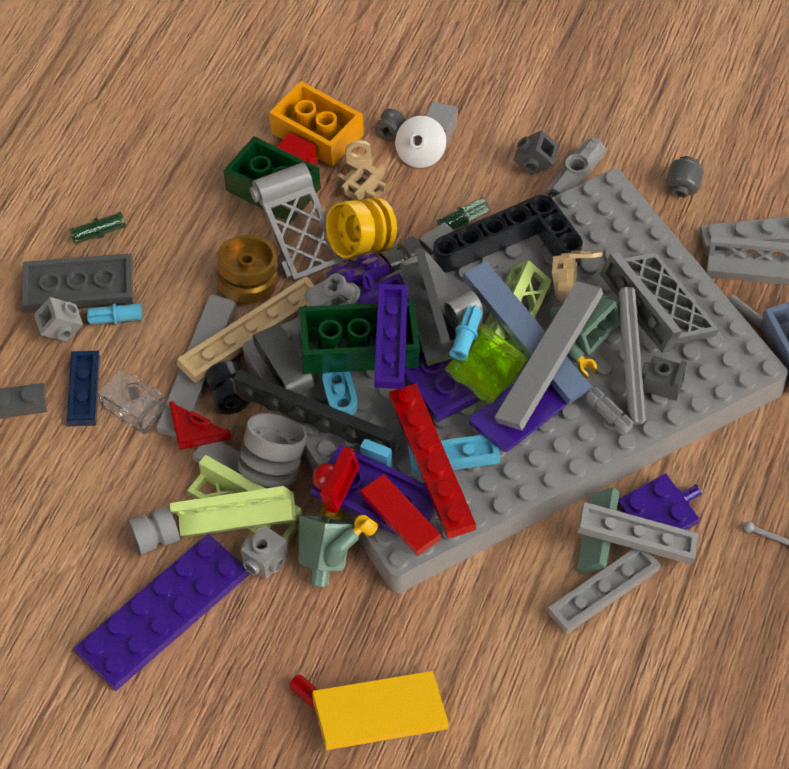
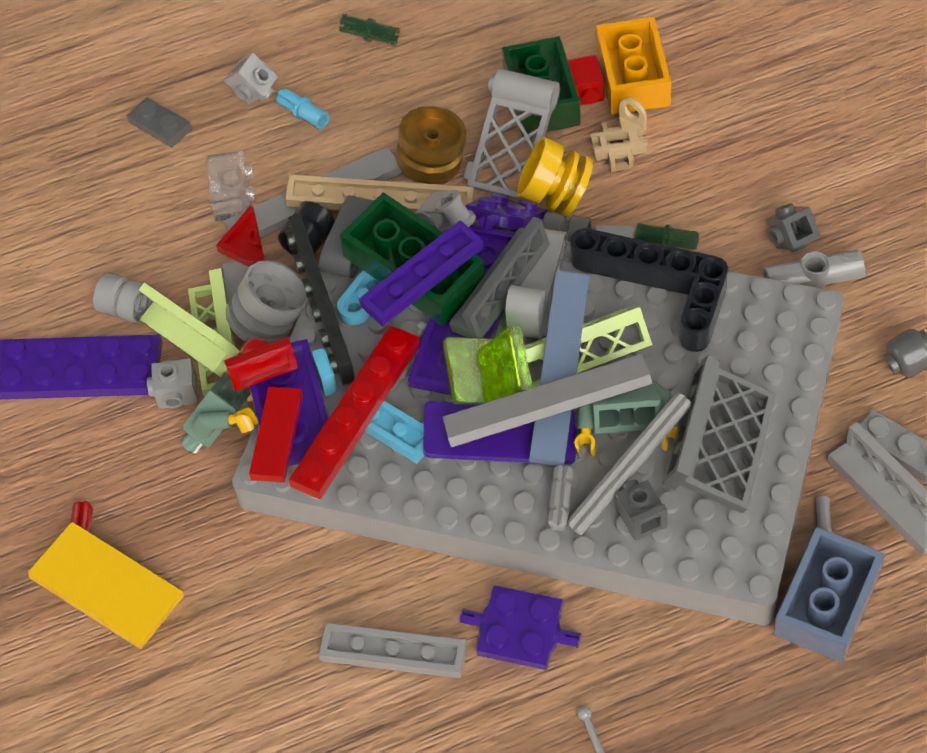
camera: 50 degrees right, 0 degrees up
(78, 281) = (306, 62): dark grey plate -> none
(83, 388) = (225, 139): dark blue tile -> none
(389, 124) = (698, 112): dark grey wheel -> none
(432, 144) = (711, 151): white dish -> none
(446, 116) = (743, 141): light grey brick -> none
(466, 333) = (494, 322): medium azure axle -> none
(565, 271) = (663, 343): tan piece -> none
(595, 551) = (447, 597): sand green tile -> none
(637, 533) = (464, 626): light grey plate -> none

